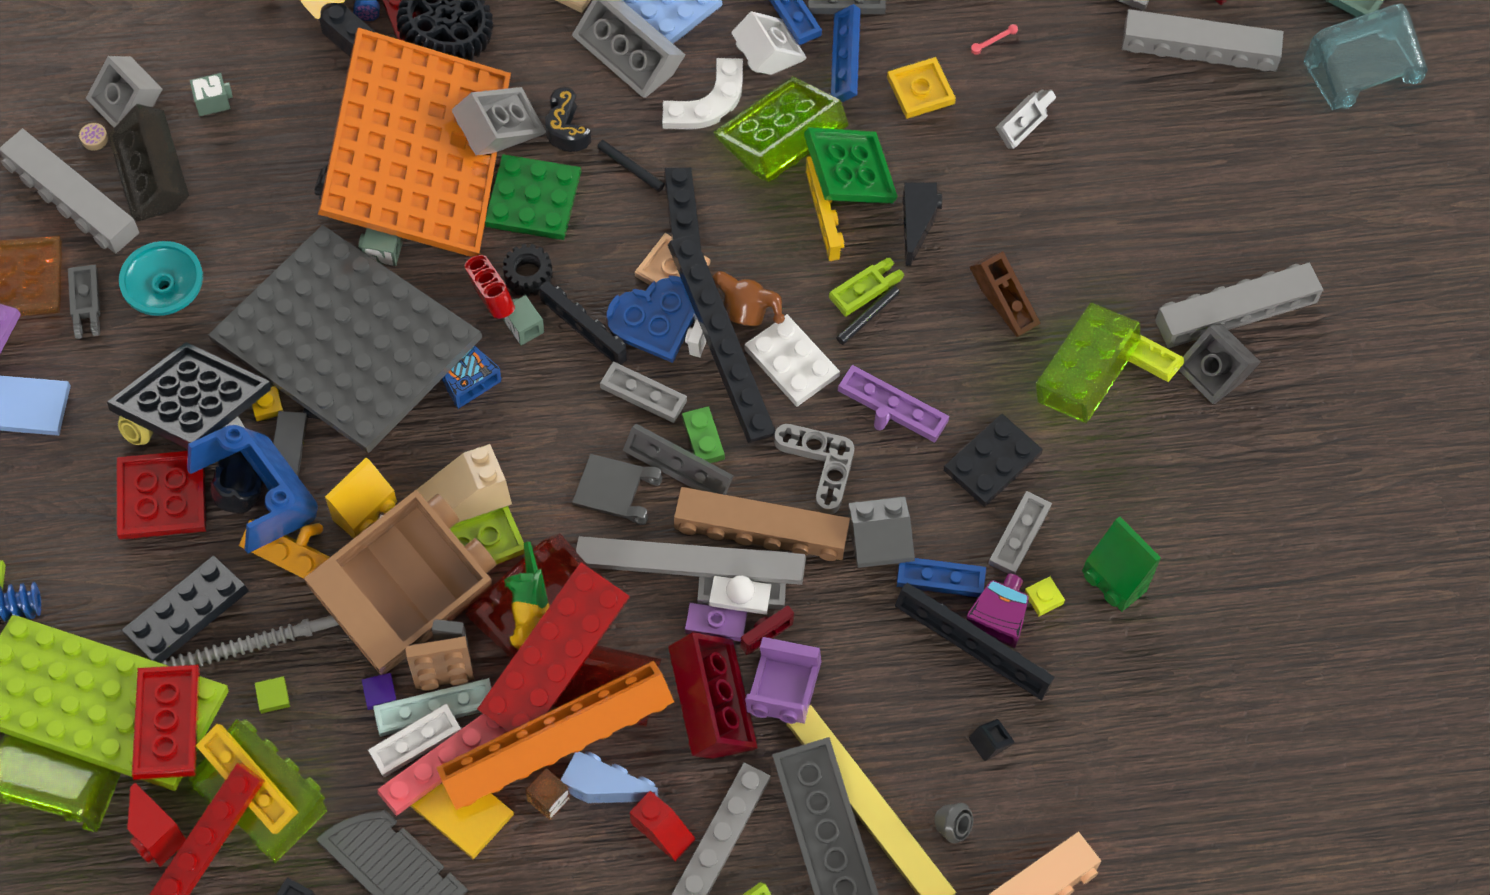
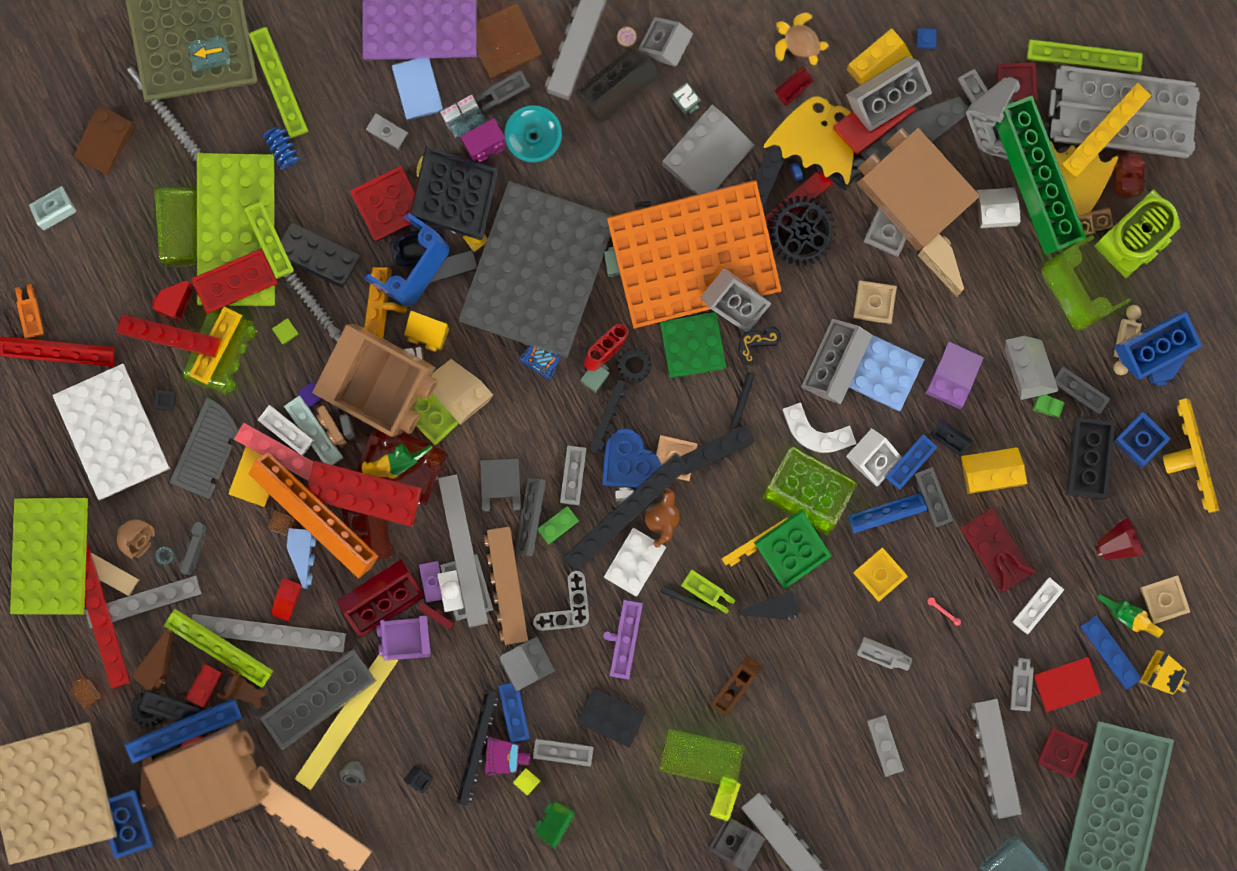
camera: 70 degrees right, 20 degrees up
(60, 463) = (387, 131): none -> light grey plate
(93, 355) = (461, 124): none -> hips
(129, 654) = (268, 240): none -> lime plate
(138, 337) = (484, 141): none -> magenta brick
(290, 94) = (708, 152): none -> light grey slope
(1143, 156) = (885, 745): none -> light grey plate

